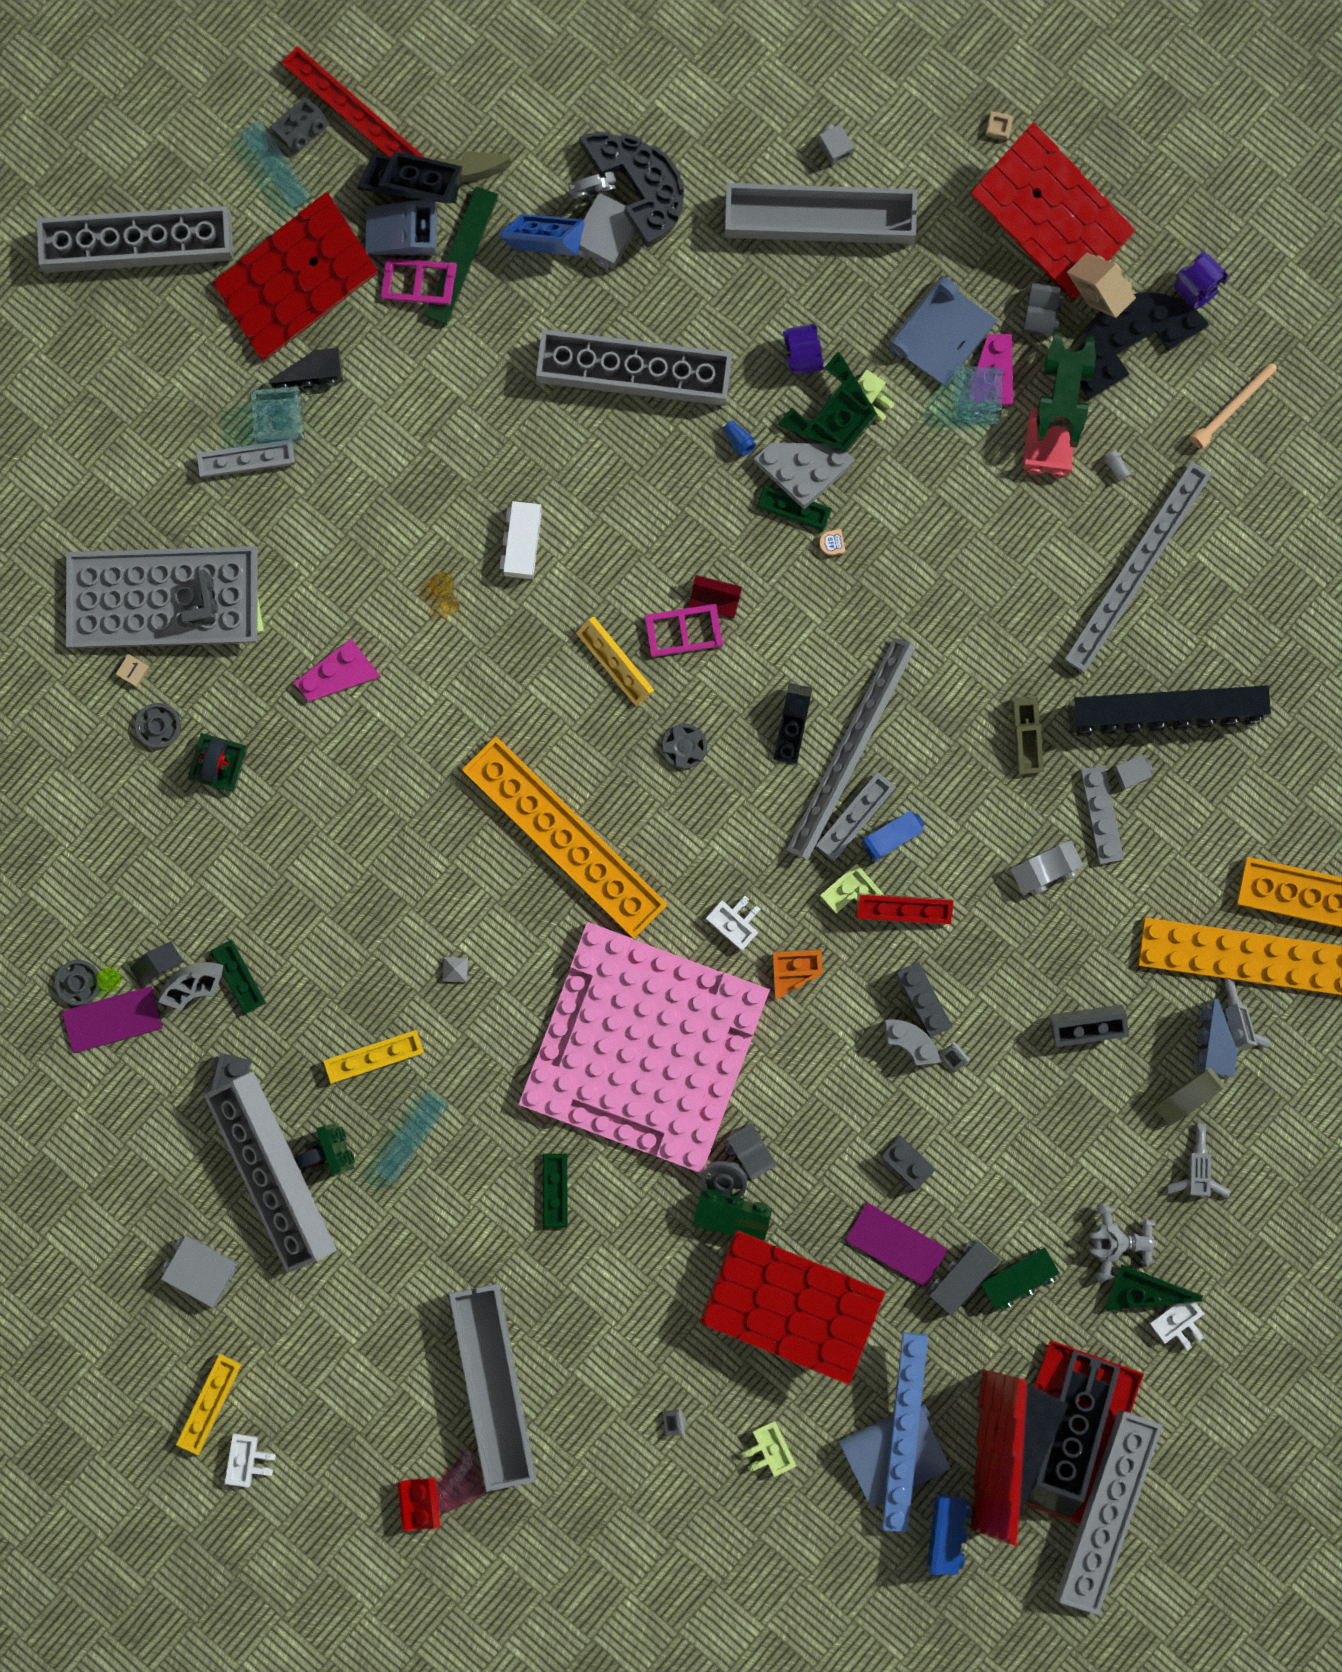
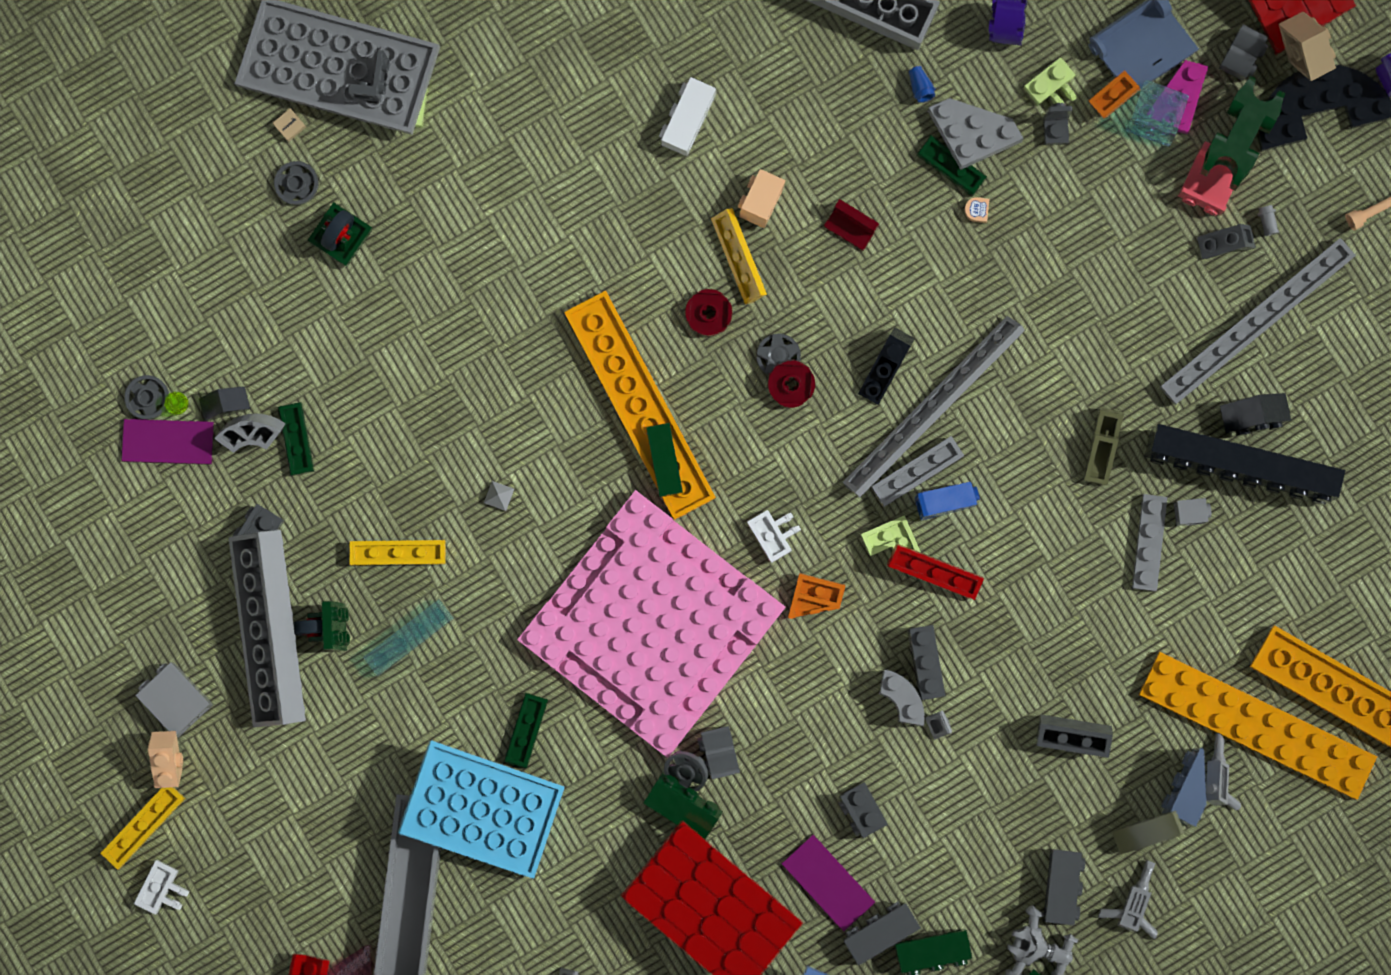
camera: 20 degrees right, 0 degrees up
(211, 1332) = (165, 759): none -> light nougat brick
(337, 672) = (478, 185): dark pink wing -> none
(449, 603) = (601, 154): clear yellow plate -> none
(536, 1282) = (481, 809): none -> medium azure plate
(591, 719) = (699, 303): none -> dark red plate
(606, 883) = (664, 460): none -> dark green tile
(619, 598) = (762, 198): none -> light nougat brick
(654, 652) = (809, 263): dark pink window -> none
(694, 762) = (782, 372): none -> dark red plate
(842, 417) = (1024, 94): dark green wing -> none
(883, 436) = (1056, 124): none -> dark grey bracket
(930, 389) = (1114, 94): none -> orange plate
(1046, 868) = (1082, 576): light grey brick -> none
(1083, 498) = (1226, 240): none -> dark grey bracket
(1125, 1175) = (1063, 887): none -> dark grey brick
(1166, 655) = (1256, 412): none -> black brick

